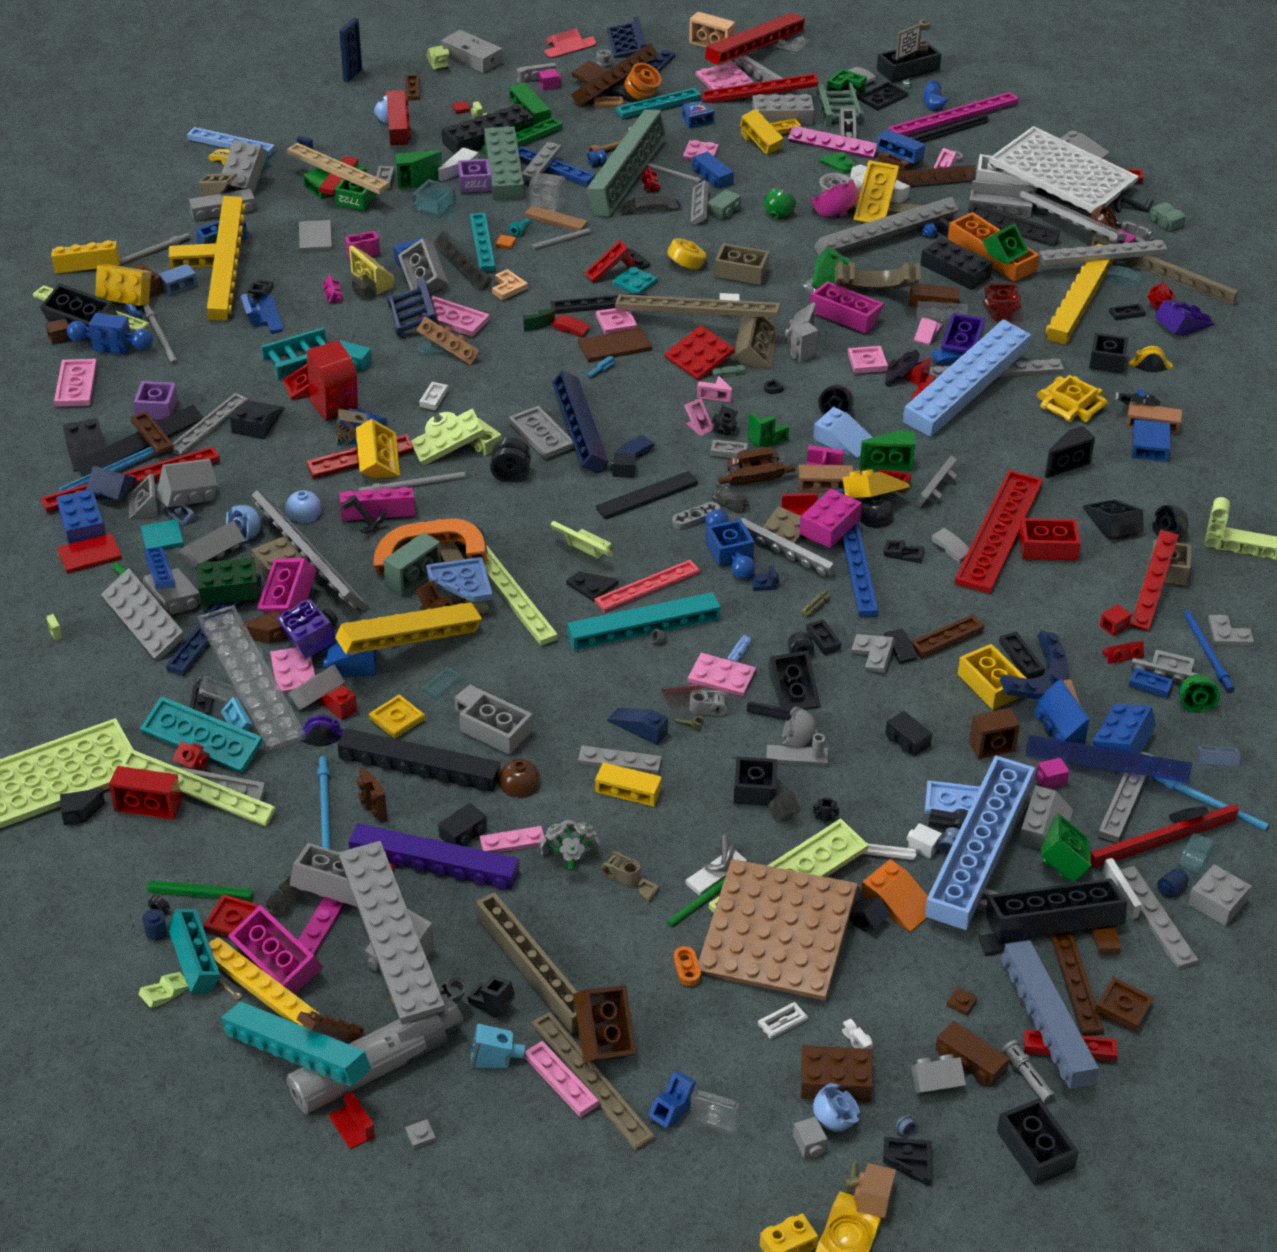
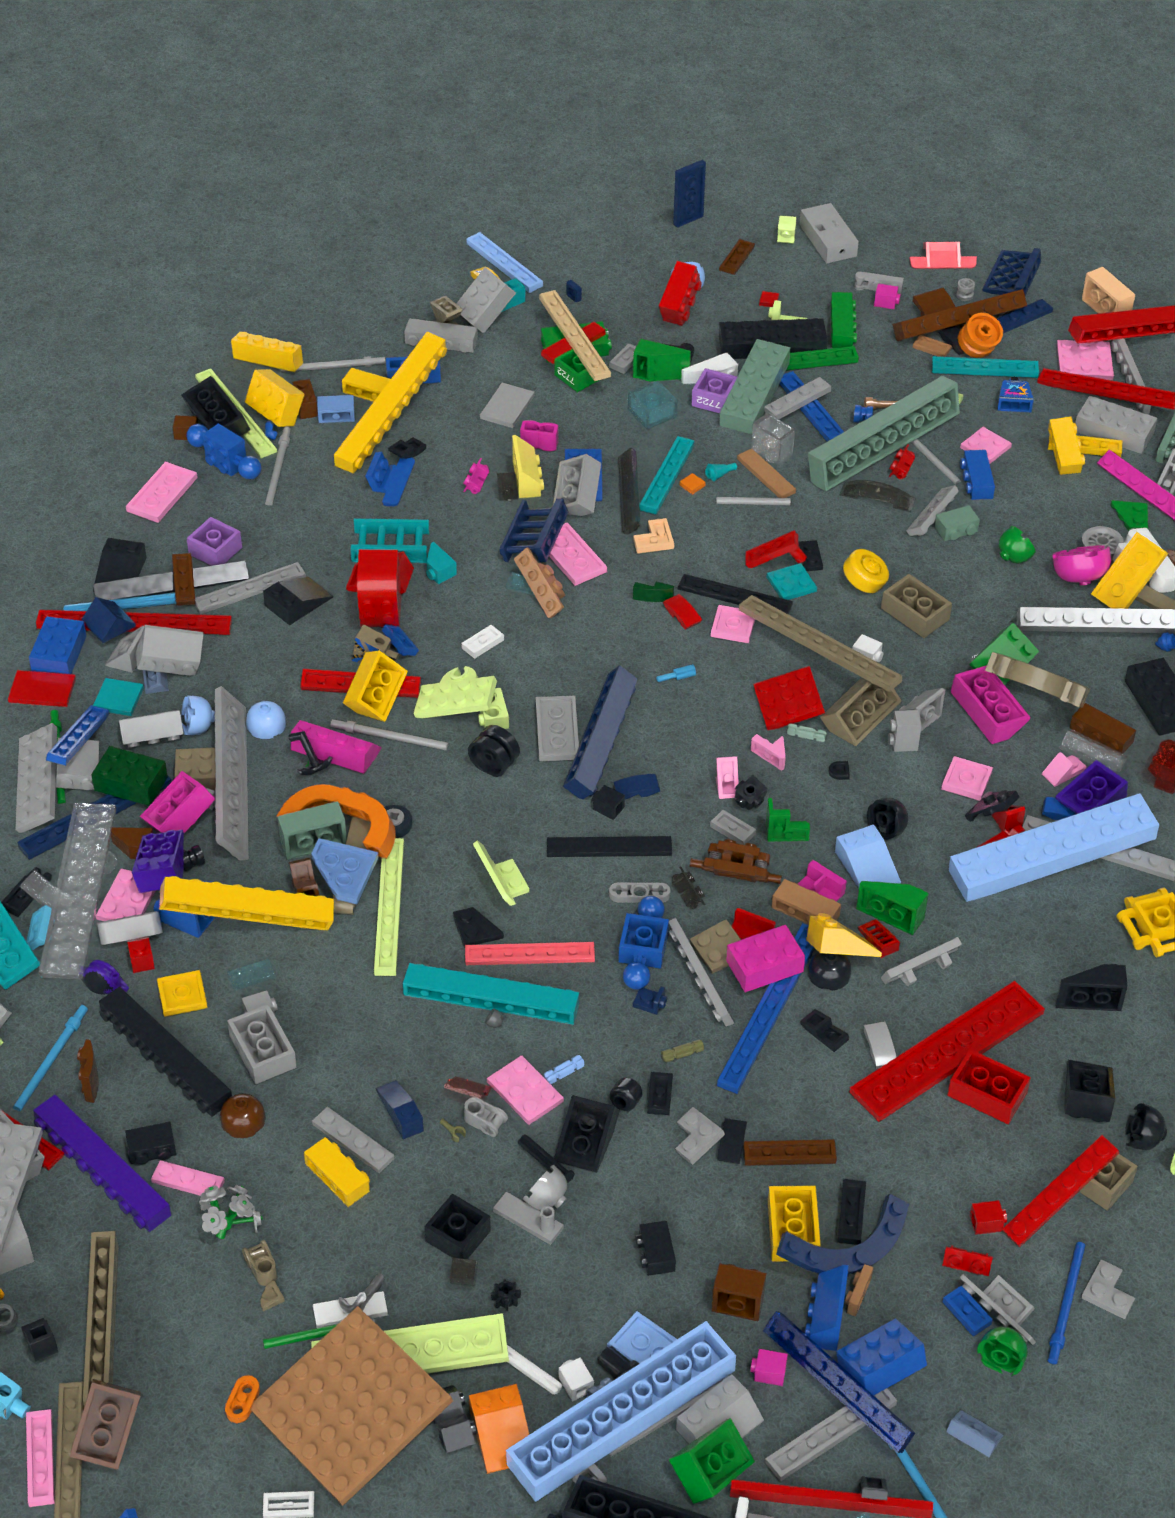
camera: 30 degrees right, 5 degrees up
(614, 344) = (712, 652): reddish brown tile -> none

